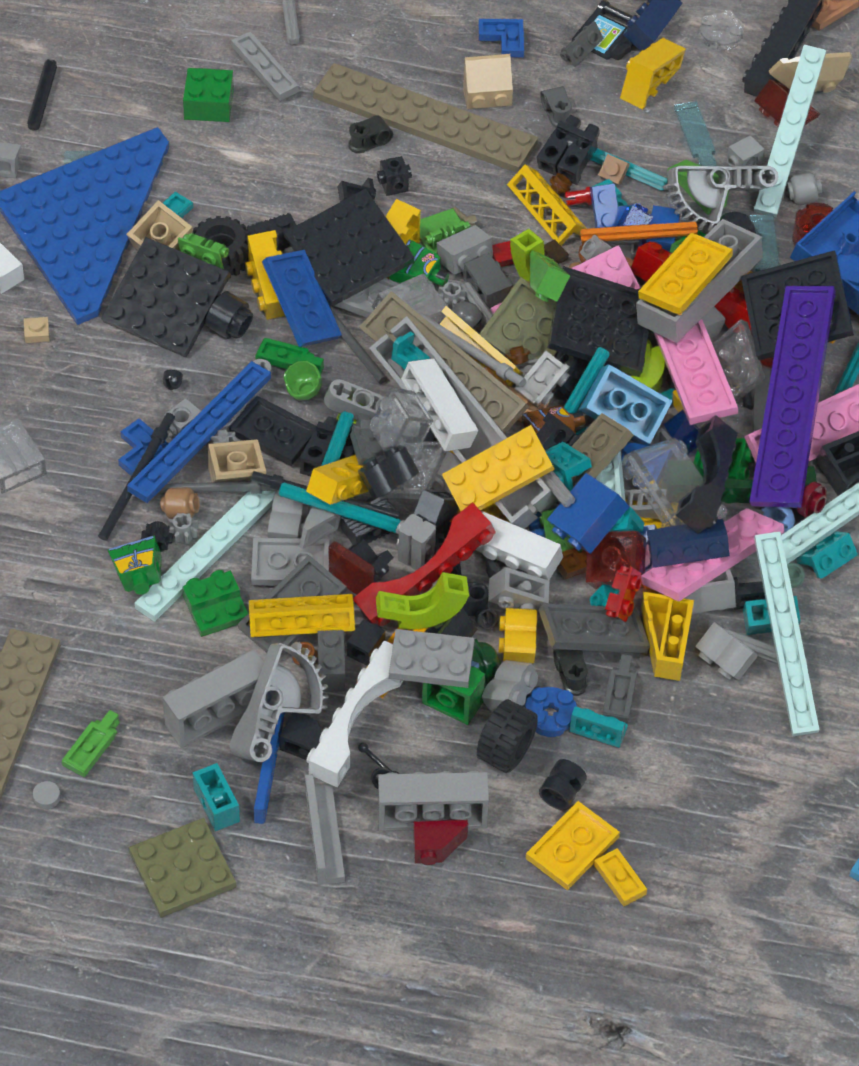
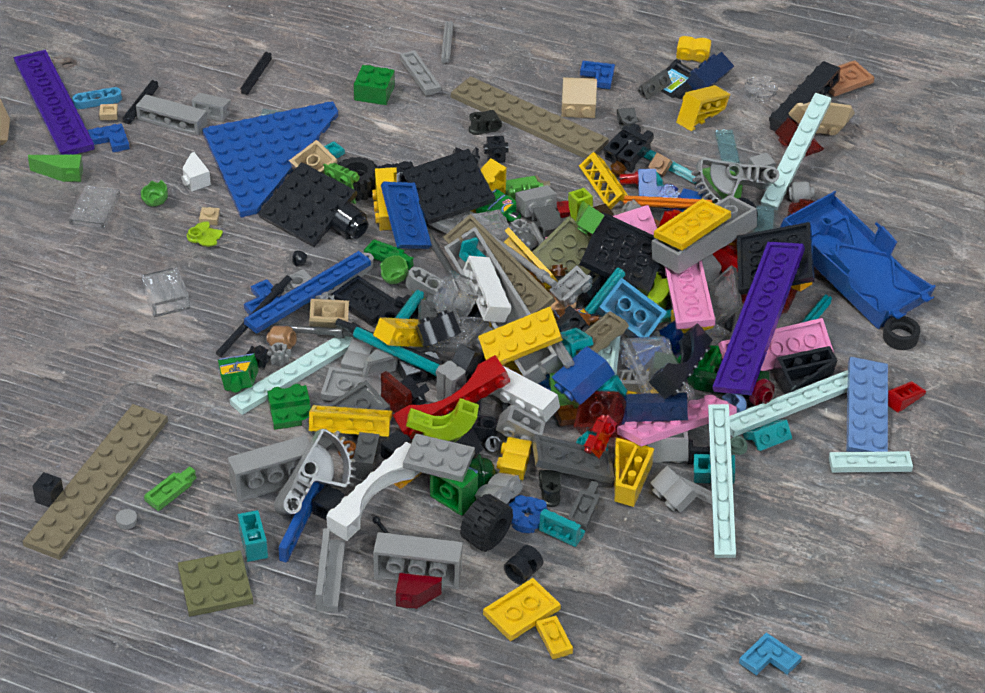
camera: 10 degrees right, 10 degrees down
(37, 360) = (204, 234): none -> lime plate

